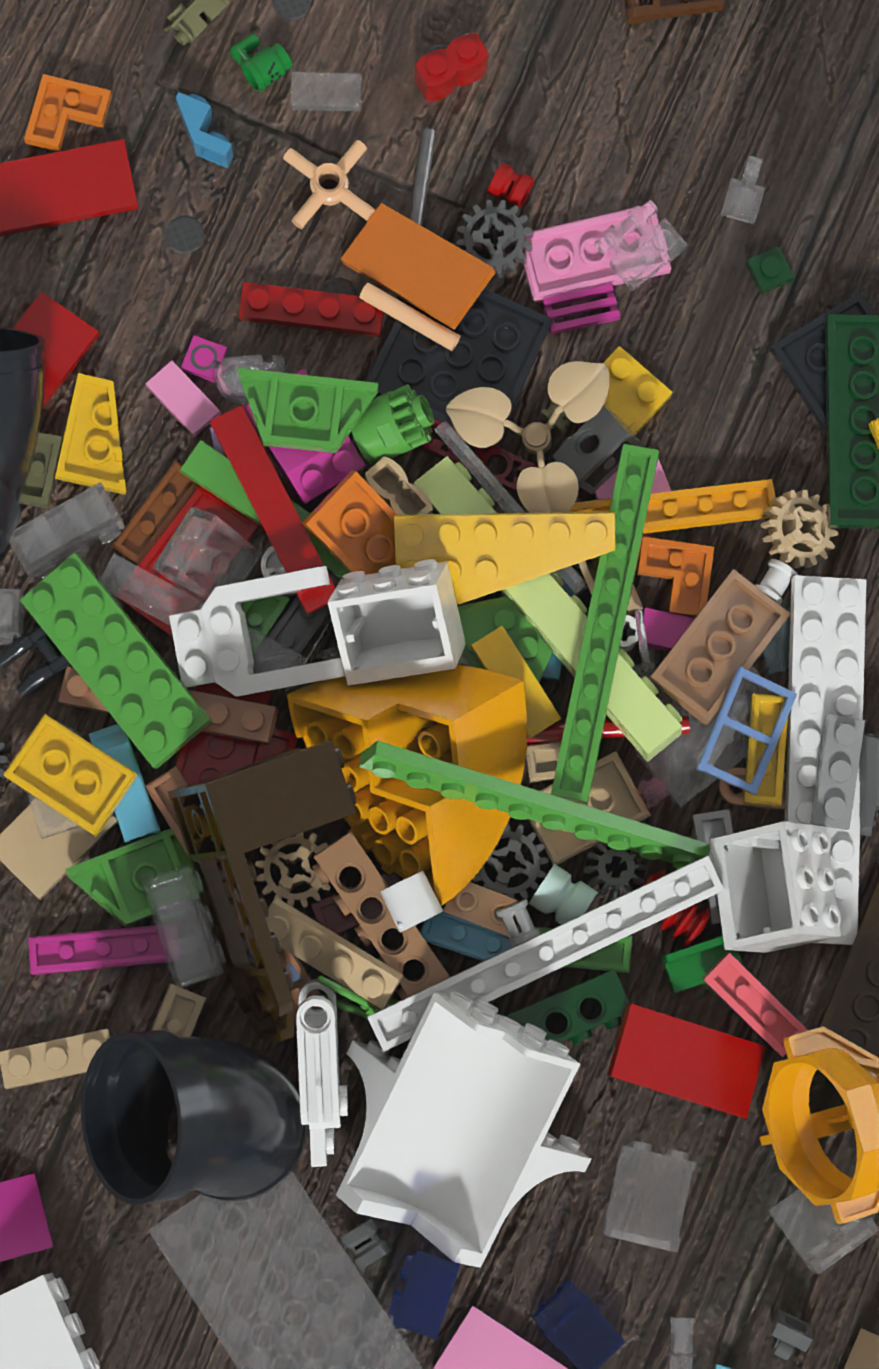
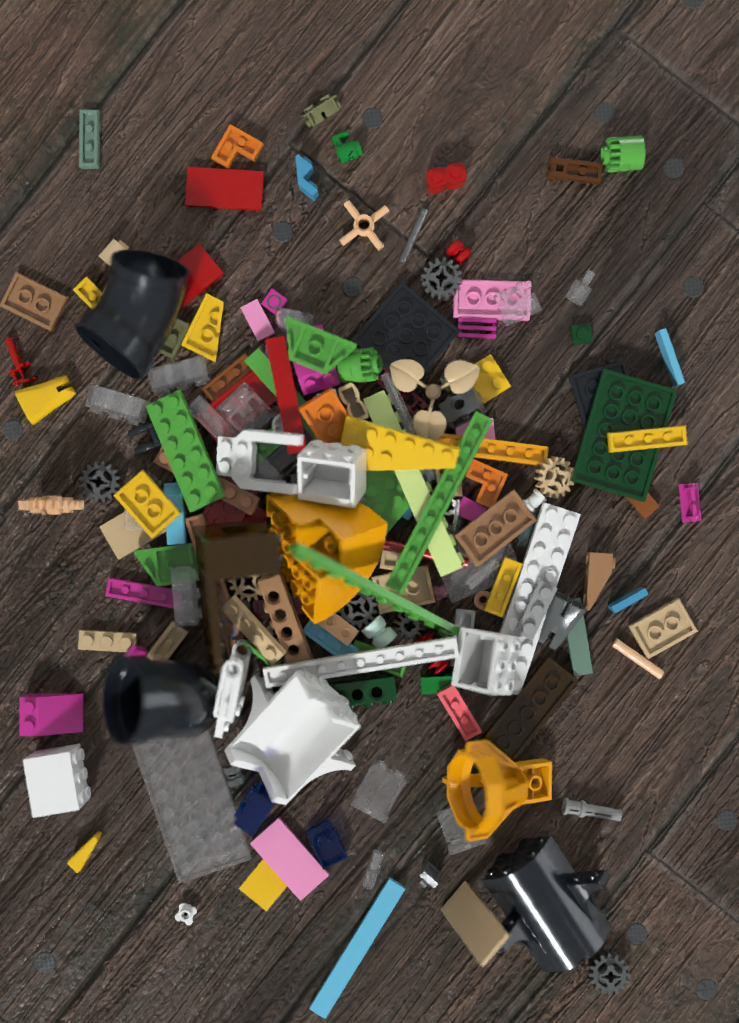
camera: 20 degrees right, 10 degrees up
(309, 309) = (336, 290): red plate -> none
(326, 91) = (376, 173): clear tile -> none
(409, 316) = (385, 309): light nougat piece -> none
(411, 901) = (299, 619): white piece -> none
(418, 266) = (397, 283): orange tile -> none
(500, 655) = (382, 506): yellow tile -> none
(517, 934) = (351, 642): light grey bush -> none
(686, 1060) = (416, 730): red tile -> none
(770, 742) = (506, 584): medium blue window -> none

